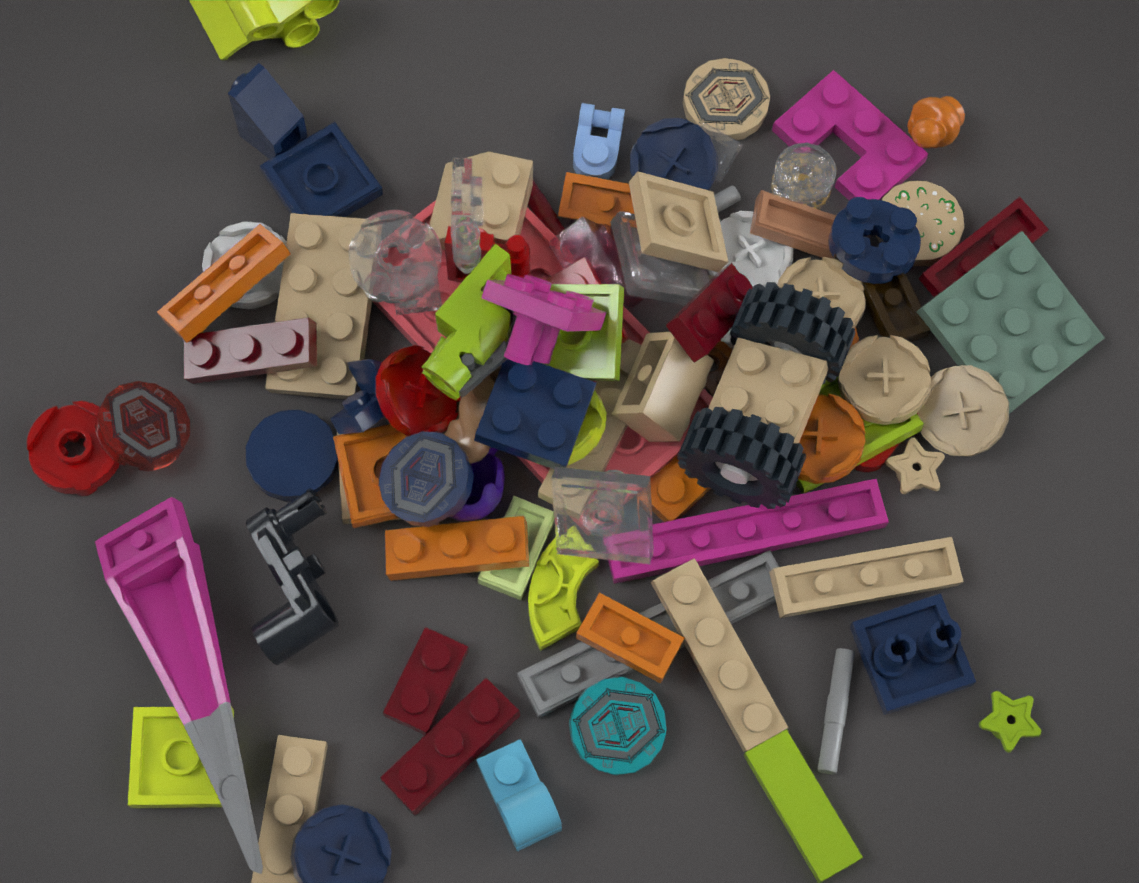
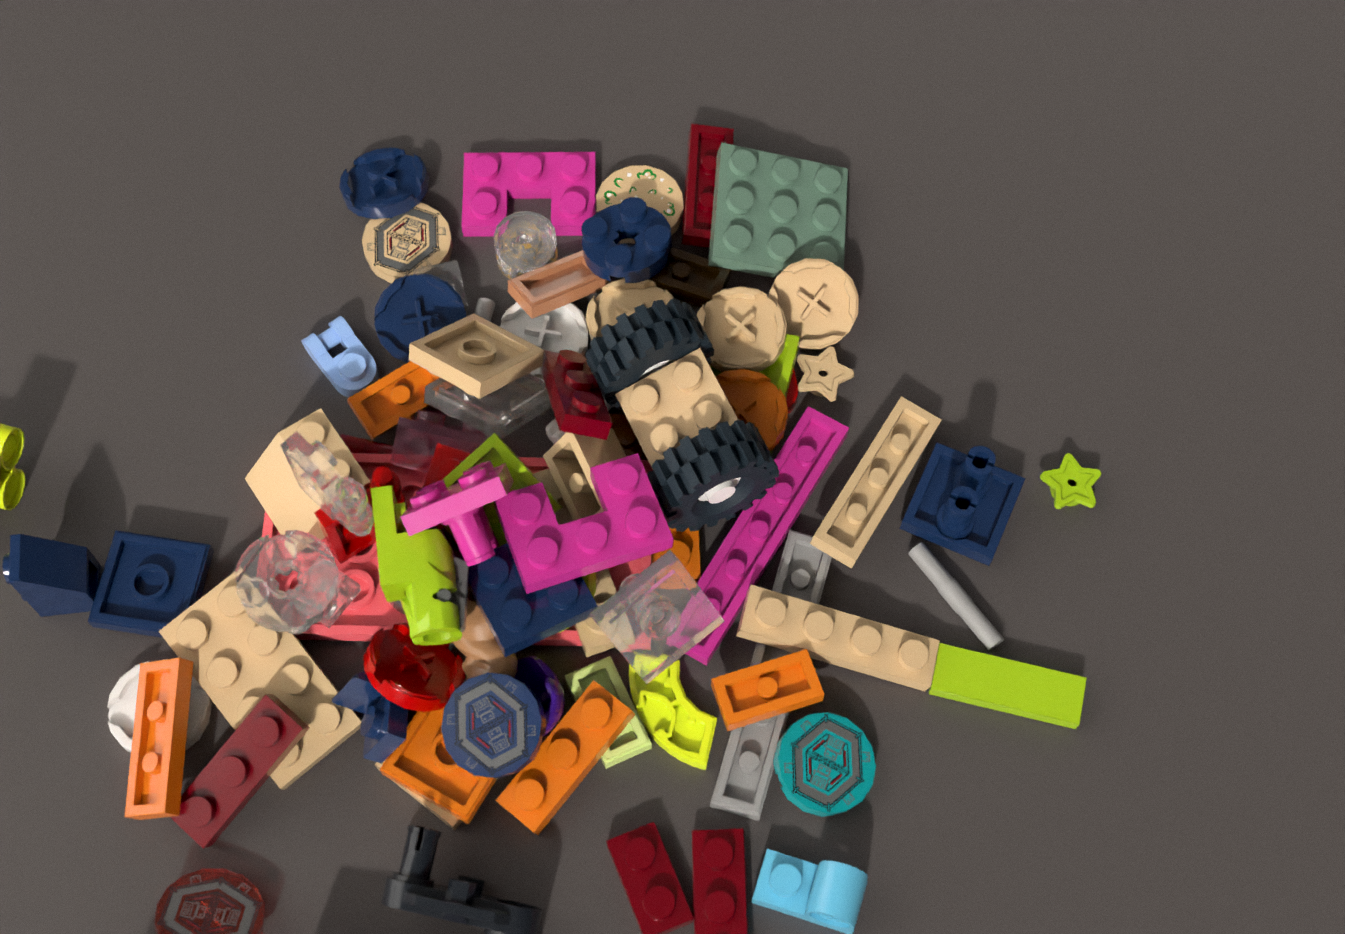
camera: 45 degrees left, 5 degrees down
(291, 454) = (357, 819): dark blue tile -> none
(633, 435) = (558, 553): none -> dark pink plate
(753, 42) = (384, 183): none -> dark blue tile
(935, 121) = (577, 124): orange animal -> none

